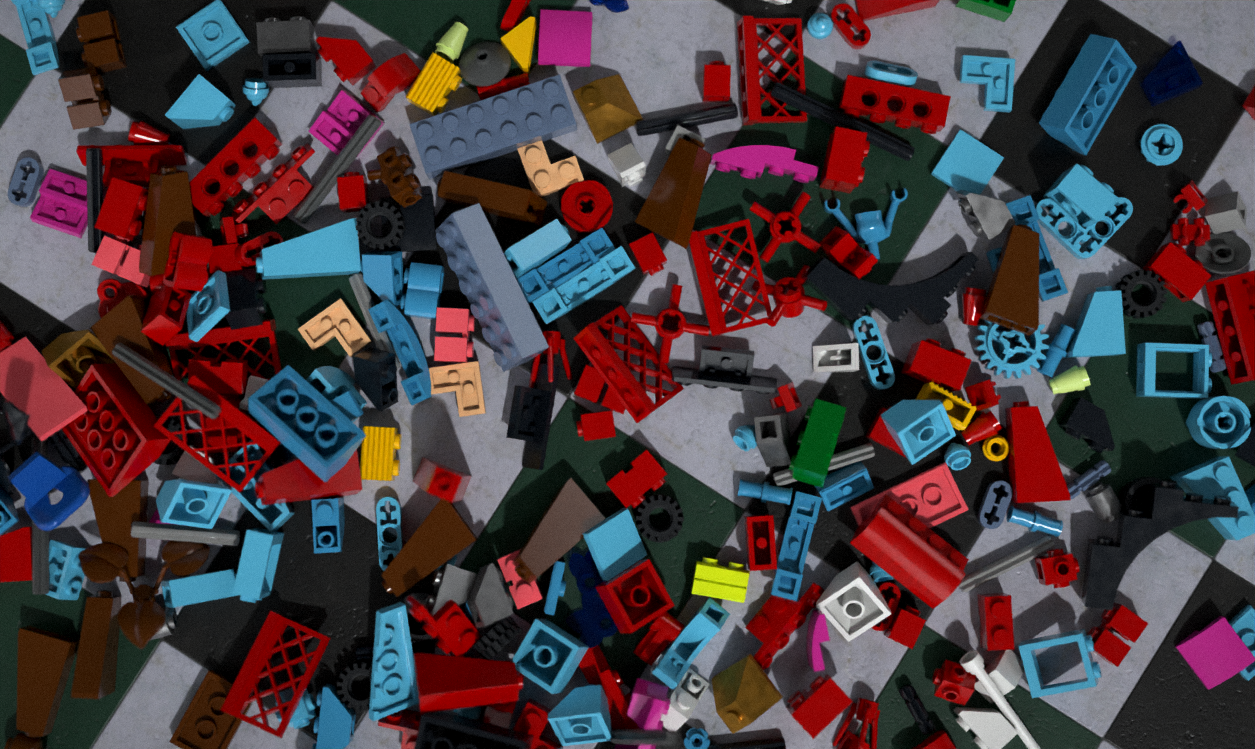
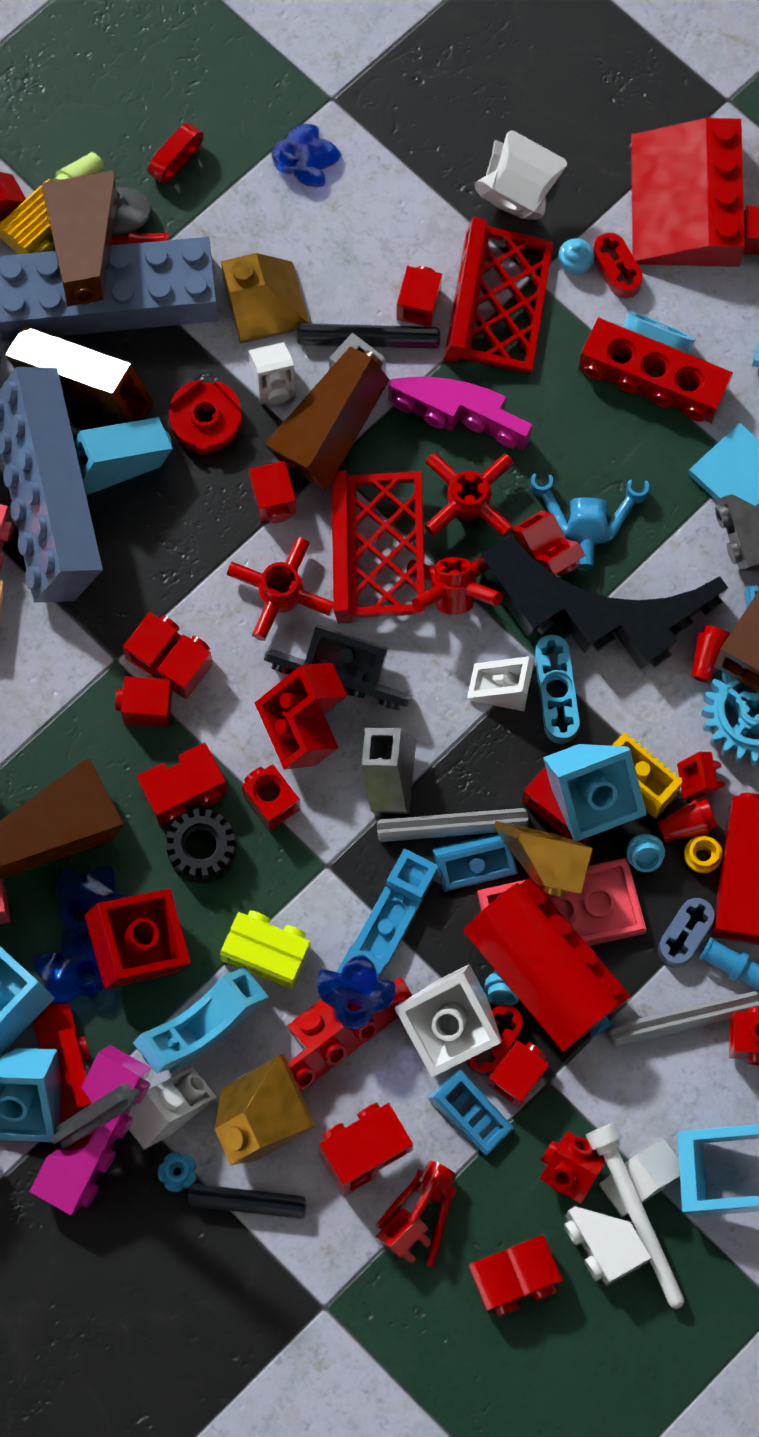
camera: 15 degrees right, 15 degrees down
(470, 95) = (82, 229): none -> reddish brown slope
(520, 43) = (170, 193): yellow slope -> none
(532, 416) = (57, 667): black bracket -> none
(548, 177) = (157, 366): light nougat plate -> none
(554, 342) = (106, 585): red plant -> none
(556, 587) = (29, 908): dark azure plate -> none
(565, 38) = (230, 202): dark pink slope -> none
(565, 266) = (158, 486): dark azure slope -> none
(584, 285) = (176, 517): medium azure slope -> none
(615, 544) = (127, 859): medium azure tile -> none
(617, 372) = (193, 631): red fence -> none
(662, 631) = (164, 1002): red piece -> none
(704, 417) = (296, 711): none -> red brick
(708, 479) = (275, 811): none -> red brick
(745, 437) = (348, 762): medium azure plate -> none
(760, 542) = (335, 905): red brick -> none
(765, 492) = (359, 842): dark azure pin -> none
(786, 598) = (356, 986): none -> clear blue plate
(788, 398) = (420, 721): red tile -> none
(816, 633) = (385, 1052): dark pink slope -> none
(817, 442) = (447, 786): green wedge -> none
(841, 120) = (580, 379): black axle -> none
(843, 160) = (569, 423): red brick -> none
(862, 649) = (459, 1079): none -> dark azure slope
(896, 478) = (548, 857): none -> pearl gold slope
(917, 709) = (511, 1199): black axle -> none
(934, 364) = (640, 710): red brick -> none
(995, 621) = (652, 1093): red brick -> none

